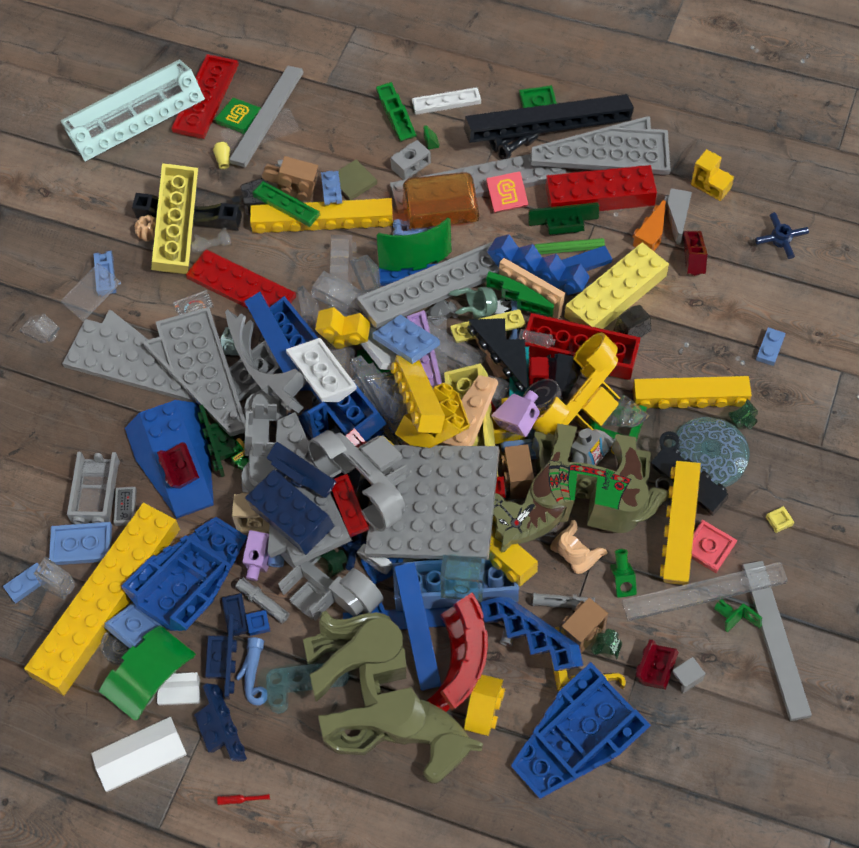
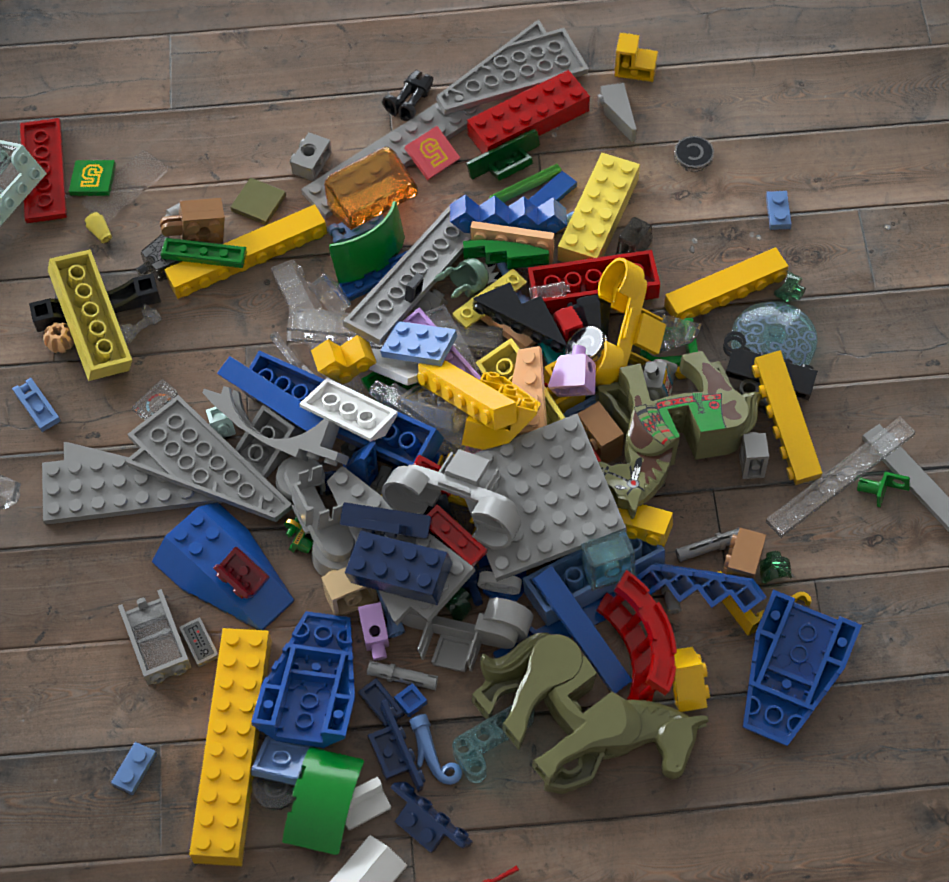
camera: 25 degrees left, 0 degrees up
(54, 578) = (168, 749): clear slope -> none
(80, 543) = (172, 701): medium blue plate -> none
(90, 292) = (32, 431): clear piece -> none
(221, 442) = (269, 534): dark green bracket -> none
(234, 280) = (187, 357): red plate -> none
(266, 116) = (125, 167): light grey tile -> none
(331, 187) = (243, 217): medium blue plate -> none
(396, 111) = (265, 111): green slope -> none
(426, 293) = (414, 287): none -> black tile
(430, 138) = (318, 126): green slope -> none
(446, 101) = (313, 80): white tile -> none
(537, 96) = (413, 46): green tile -> none
(548, 118) = (436, 59): black brick -> none
(574, 551) = (698, 493): light nougat hair -> none
(623, 573) = (754, 492): green bracket -> none
(638, 541) = (754, 455): none -> light grey brick
(651, 228) = (602, 135): orange slope -> none
(656, 665) = (832, 568): dark red bracket -> none
(689, 674) = (868, 562): light grey panel -> none
(695, 252) = (657, 143): dark red slope -> none
(711, 546) = (825, 430): coral tile -> none
(723, 272) = (694, 153): none -> black tile
(780, 519) = (874, 377): light yellow tile -> none
(782, 235) = (733, 94): dark blue bar -> none

